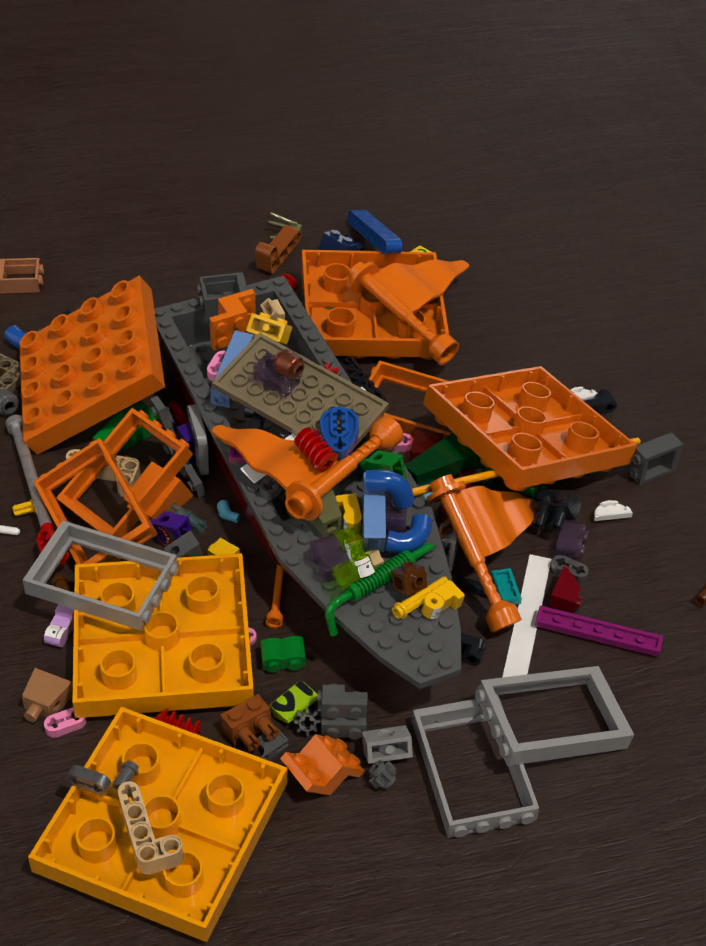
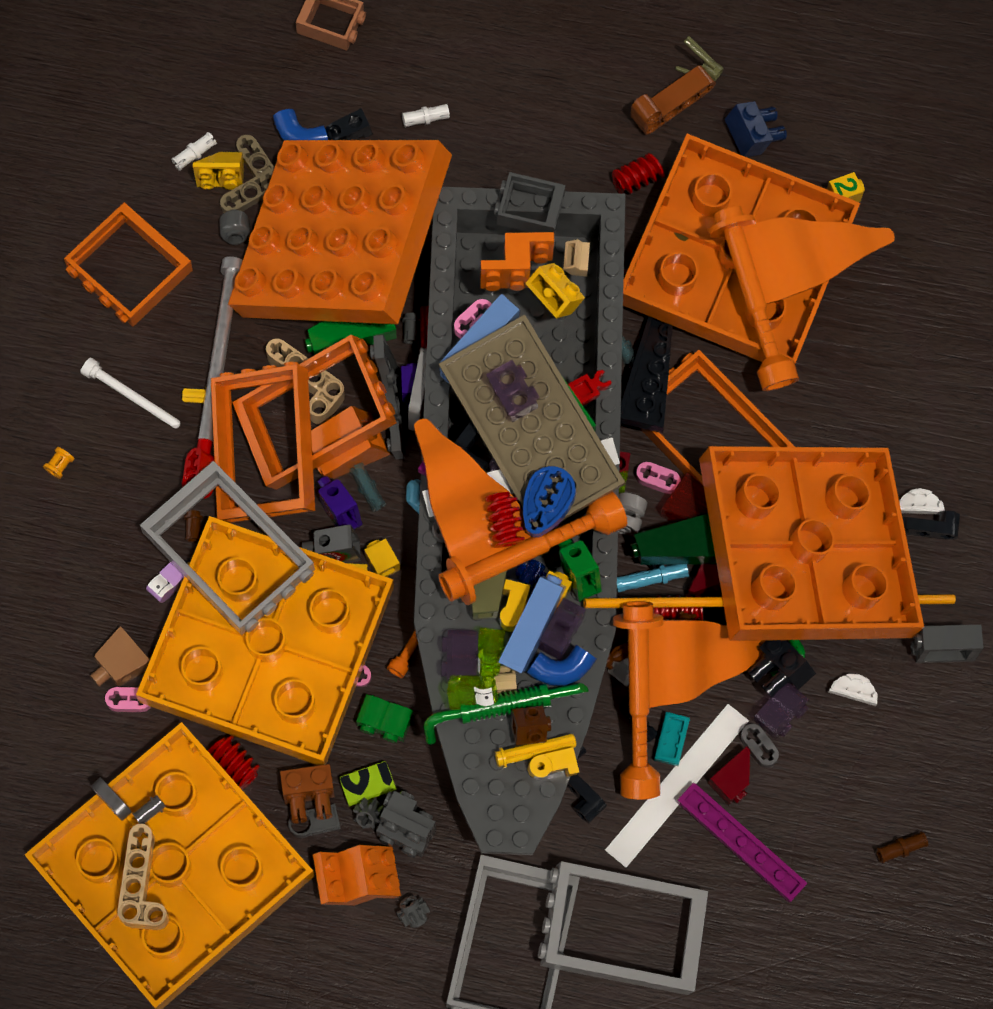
camera: 25 degrees right, 25 degrees up
(288, 364) = (523, 395): copper head -> none
(350, 486) = (530, 572): none -> clear blue gear
(375, 232) = (803, 129): blue beam -> none
(387, 744) = (435, 880): light grey brick -> none
(392, 483) = (557, 610): blue cylinder -> none

